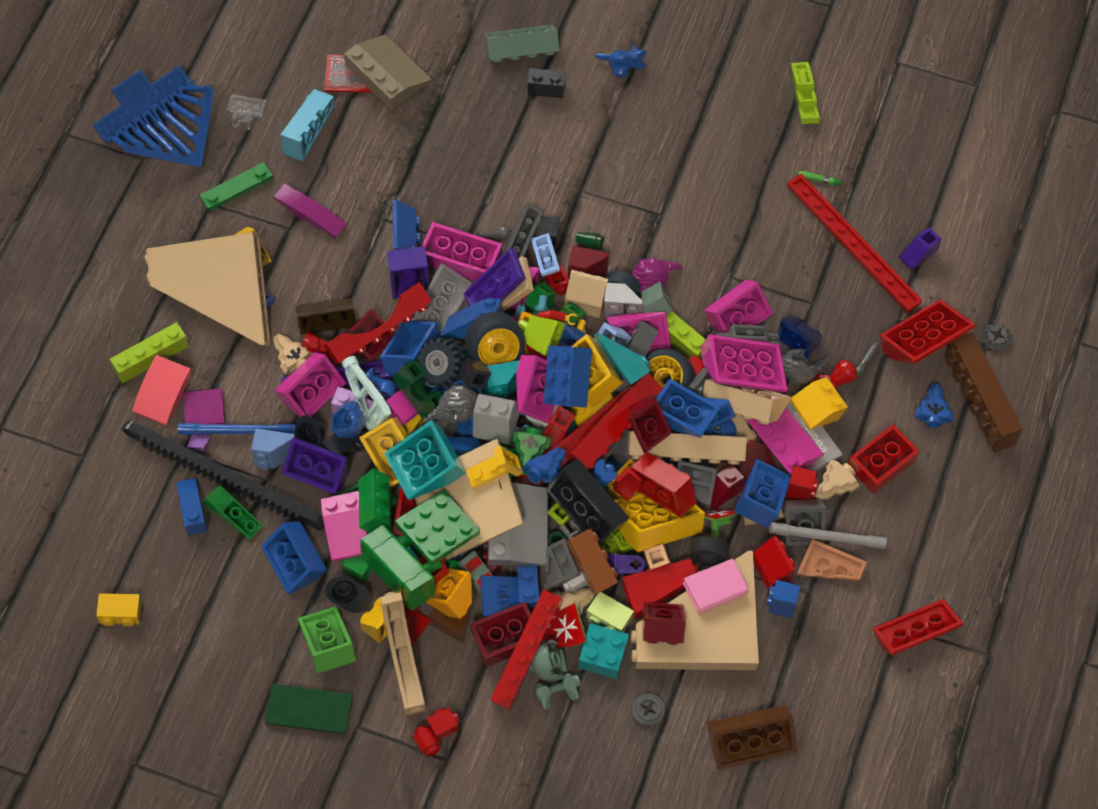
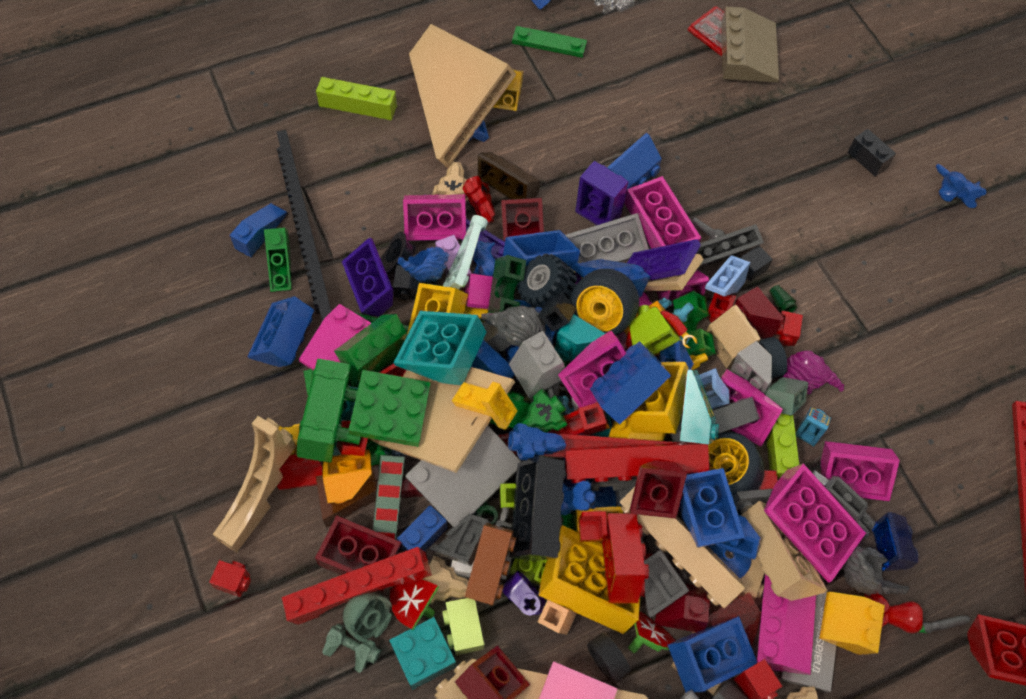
camera: 45 degrees right, 0 degrees up
(119, 609) = (124, 254): yellow brick -> none
(162, 390) = (335, 131): coral slope -> none
(193, 428) = (324, 176): blue piece -> none
(199, 442) = (319, 190): medium lavender slope -> none
(204, 407) = (349, 170): magenta tile -> none
(270, 448) = (351, 231): medium blue slope -> none
(306, 125) = (645, 37): medium azure wedge -> none
(308, 709) = (156, 461): dark green tile -> none
(310, 210) = (582, 98): magenta slope -> none
(327, 639) = (228, 419): bright green slope -> none
(347, 344) = (576, 218): red arch -> none
(348, 594) = (284, 397): black piece -> none
(426, 741) = (199, 579): red brick -> none
(498, 594) = (388, 514): blue piece -> none
(521, 43) = (881, 109): sand green slope -> none
(617, 258) = (790, 328): none -> red brick
(656, 584) = (531, 642): red slope -> none
(688, 306) = (813, 426): none -> dark azure slope

